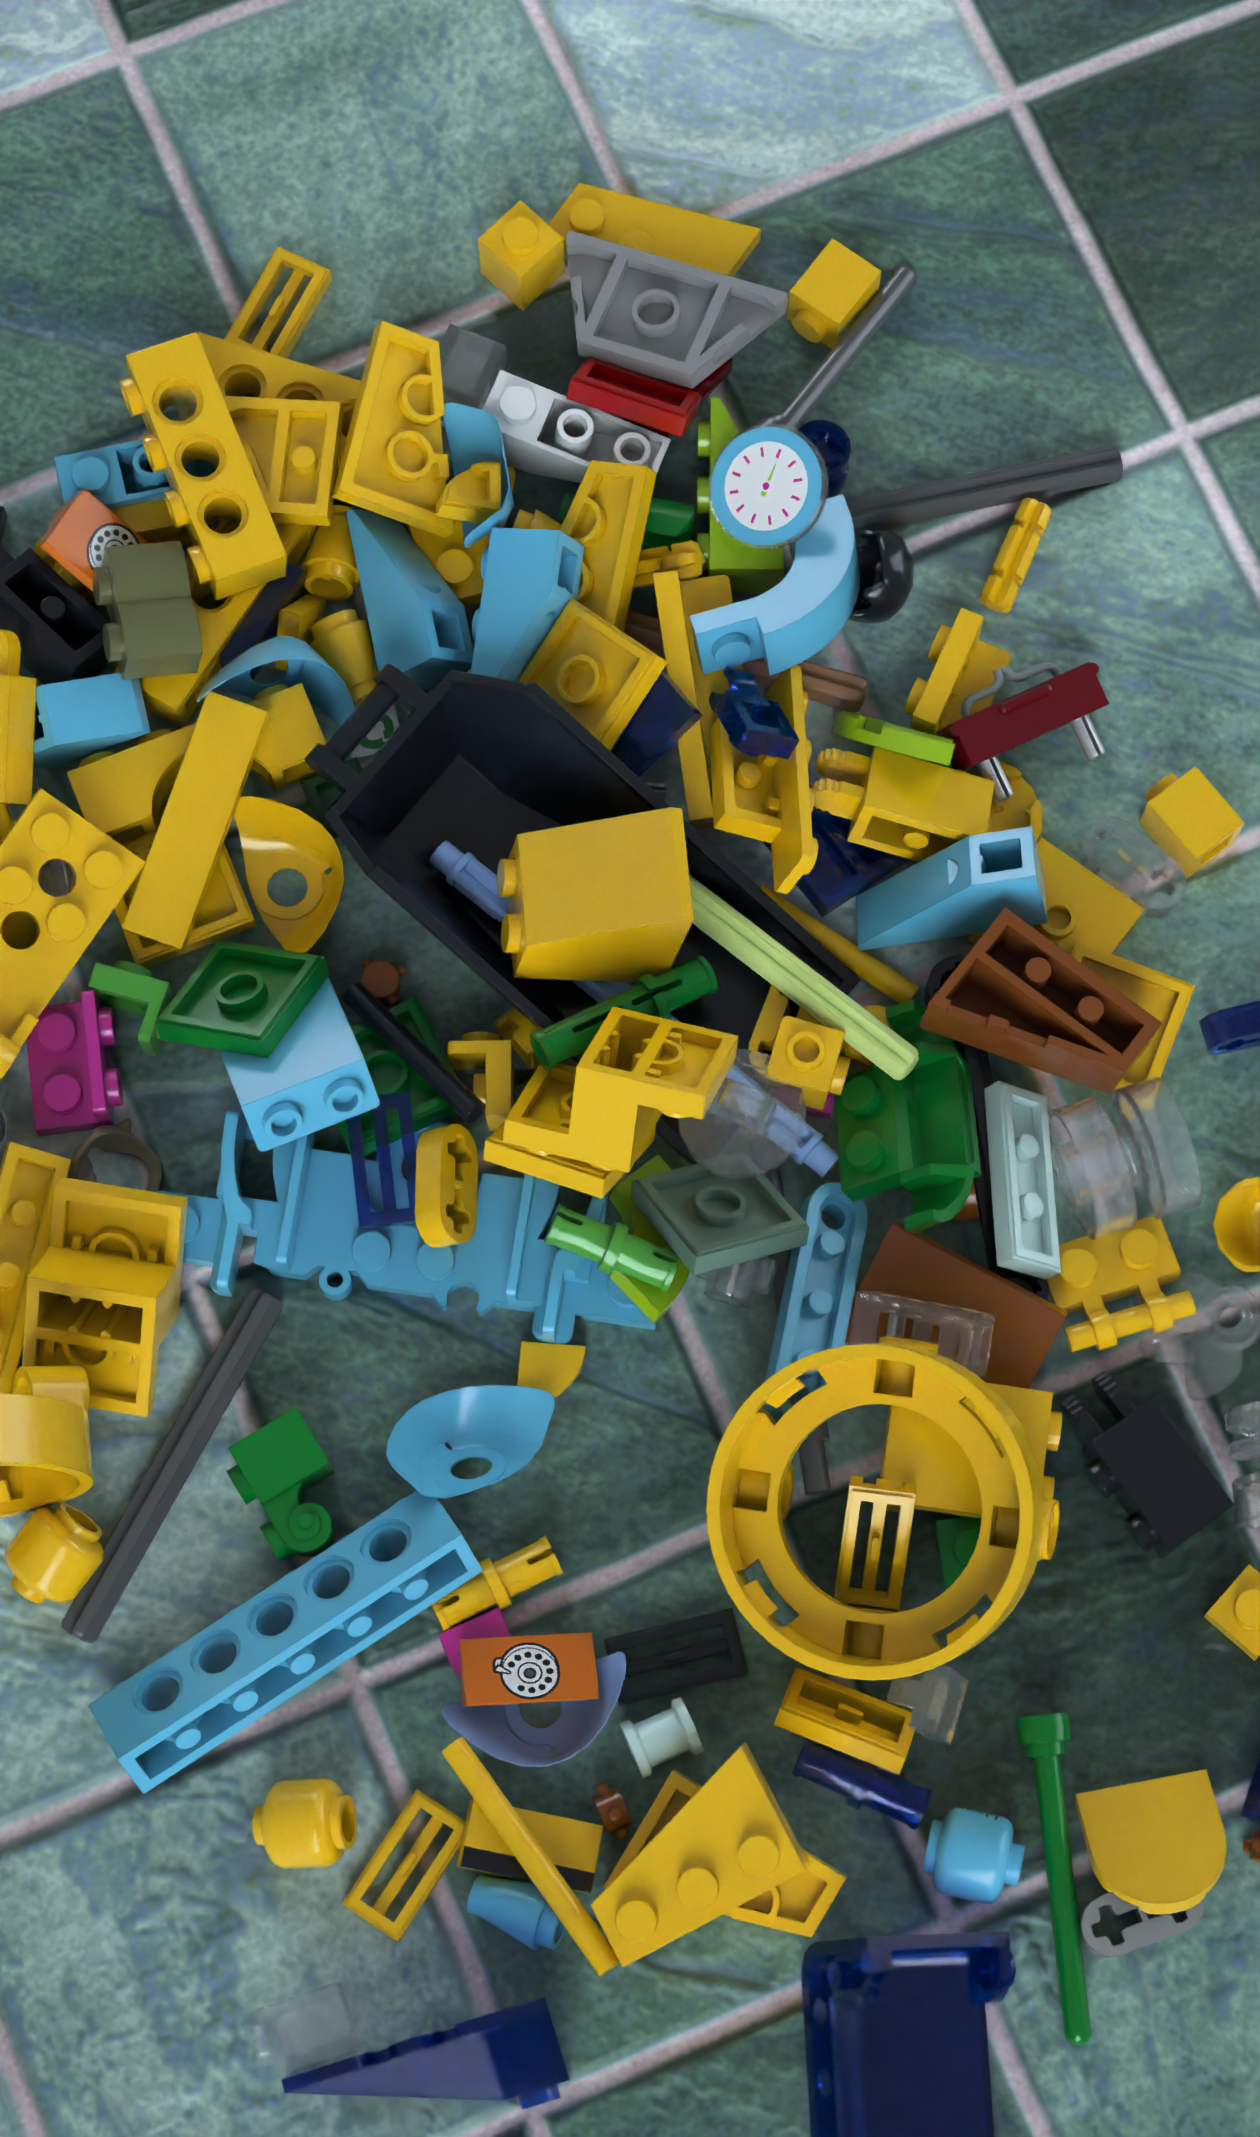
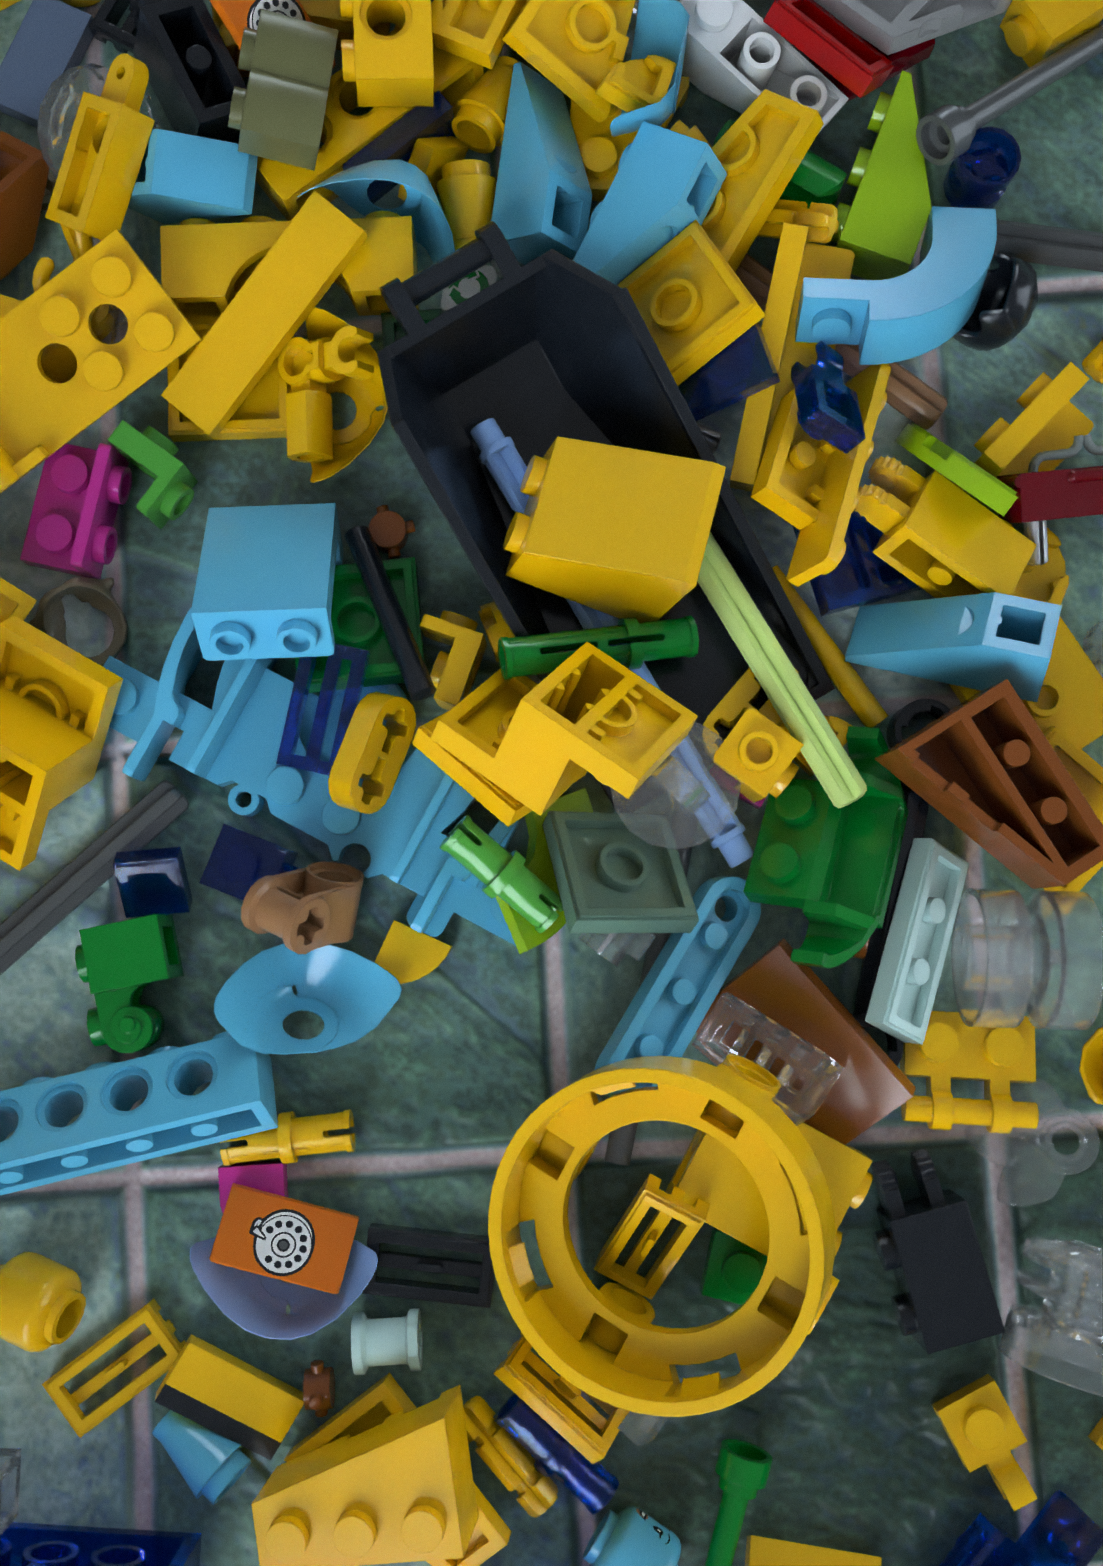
camera: 20 degrees right, 10 degrees up
(242, 998) = (246, 504): green tile -> none
(254, 857) = (312, 370): none -> yellow bar
(275, 1385) = (152, 881): none -> clear blue tile
(366, 1343) = (242, 860): none -> clear blue bracket
(437, 1347) = (306, 905): none -> medium nougat piece
(531, 1856) = (218, 1417): yellow piece -> none
(768, 486) = (928, 173): piece -> none
(820, 1810) = (508, 1459): none -> yellow axle

